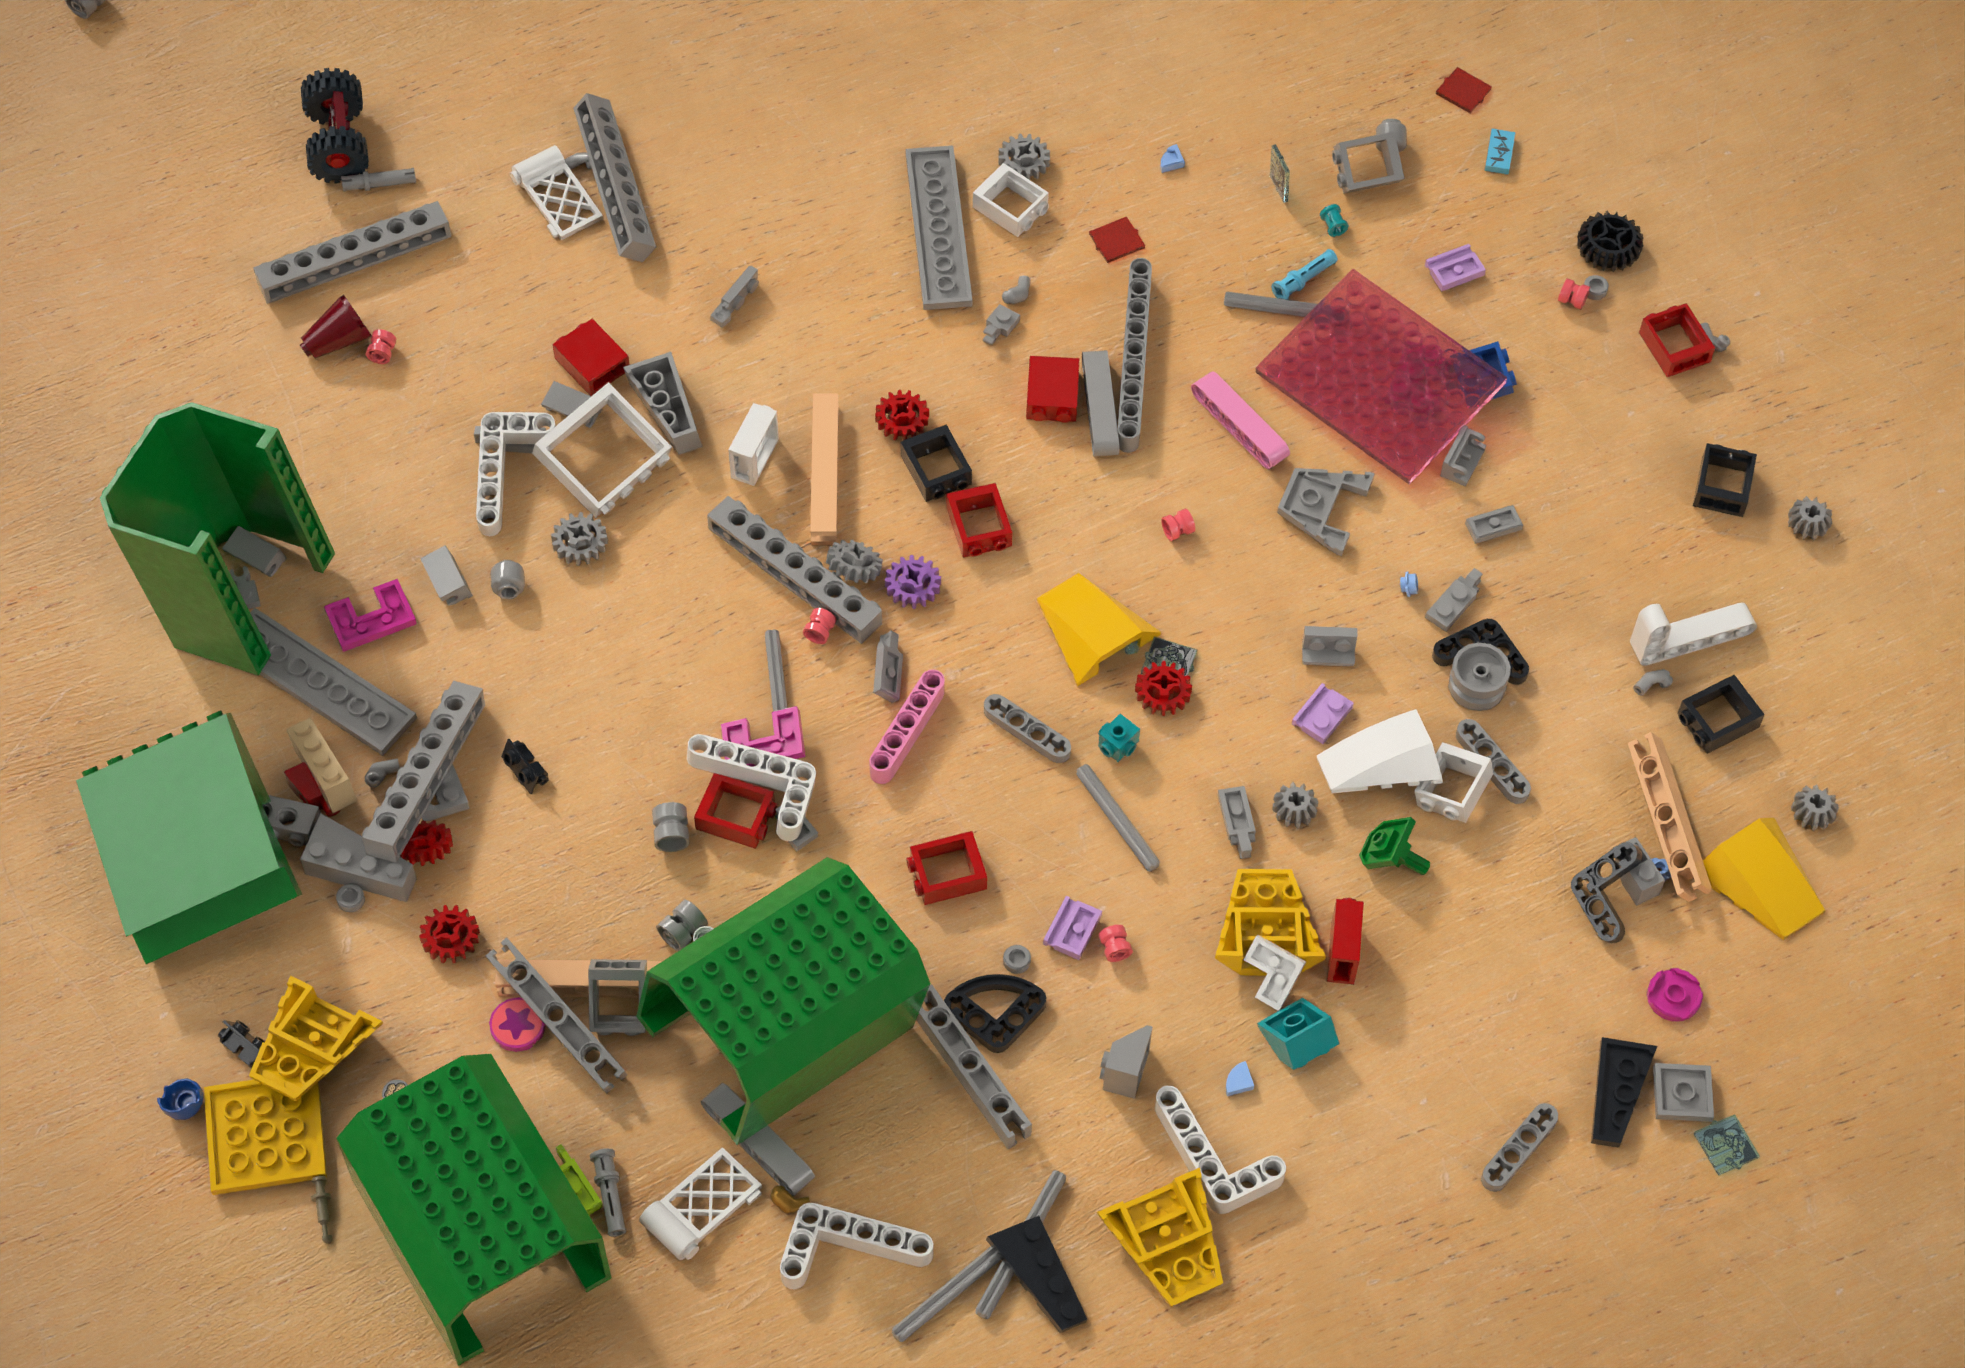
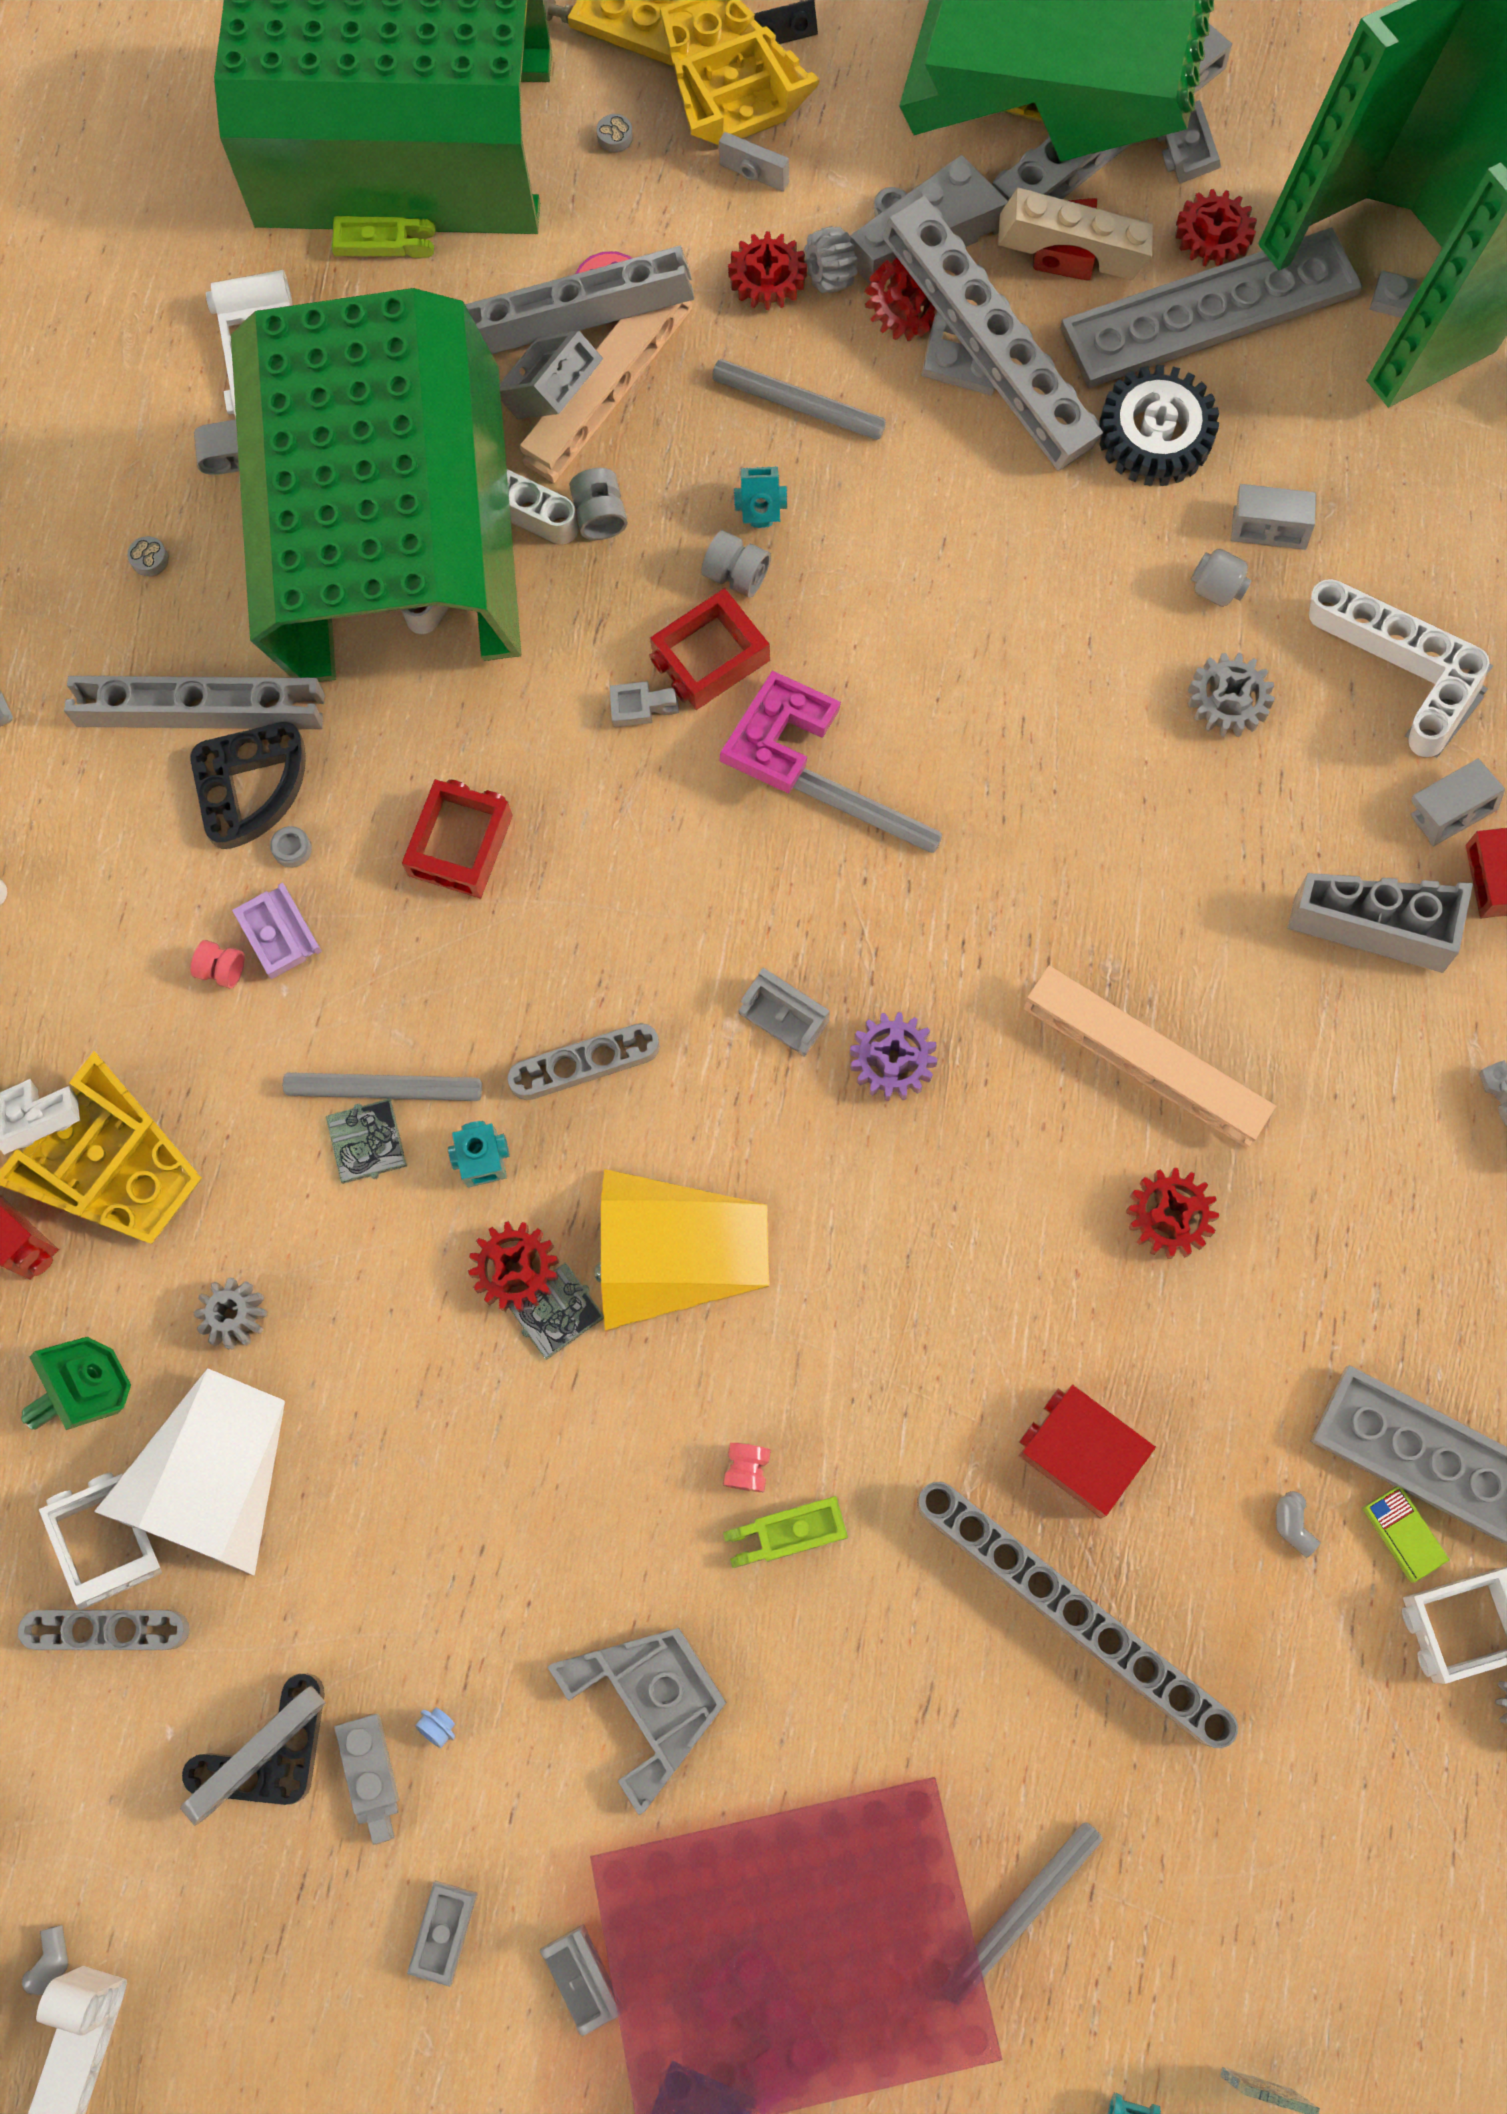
camera: 130 degrees right, 15 degrees up
(271, 706) = (1215, 228): none -> red gear
(371, 988) = (754, 161): none -> light grey plate
(379, 770) = (1039, 311): light grey arm -> none
(390, 618) = (1251, 428): dark pink plate -> none
(404, 670) = (1165, 402): none -> wheel
(422, 895) = (830, 259): none -> light grey gear
(517, 757) = (953, 460): black hinge -> none
(529, 867) = (799, 399): none -> light grey axle
(608, 1176) = (355, 269): light grey pin -> none
(616, 838) = (757, 484): none -> teal brick
(632, 418) = (1329, 720): white window -> none
(753, 444) = (1239, 979): white window -> none
(760, 774) = (720, 687): white beam -> none
(786, 1201) = (185, 436): pearl gold arm -> none
(819, 626) = (904, 900): coral wheel -> none
(848, 1238) = (100, 460): white beam -> none
(854, 561) = (963, 1012): light grey gear -> none
(858, 624) = (1142, 877): light grey brick -> none
(888, 668) = (786, 945): light grey hinge -> none
(893, 1169) = (147, 556): none -> tile
(906, 737) = (681, 896): bright pink beam -> none
(926, 645) = (784, 1012): none -> light grey hinge
(929, 443) = (1104, 1210): black window -> none
(976, 499) = (881, 1204): red window -> none
(987, 248) = (1405, 1534): none -> lime tile
(1000, 322) = (1254, 1463): light grey plate -> none
(1100, 403) = (1021, 1503): light grey beam -> none
(1117, 239) = (1307, 1745): clear red piece -> none
(1126, 1062) = (51, 860): light grey slope -> none
(1153, 808) = (366, 1141): none -> piece
(1172, 159) = (1414, 1946): light blue tile -> none
(1194, 491) = (791, 1531): none -> lime hinge
(1237, 819) = (269, 1229): light grey hinge -> none
(1240, 420) = (861, 1686): bright pink beam -> none
(1296, 280) = (1060, 1965): medium azure pin -> none
(1322, 713) = (336, 1455): lavender plate -> none
(1329, 646) = (414, 1531): light grey bracket -> none
(1479, 676) = (192, 1702): light grey wheel -> none
(1513, 647) = (252, 1755): none -> light grey beam

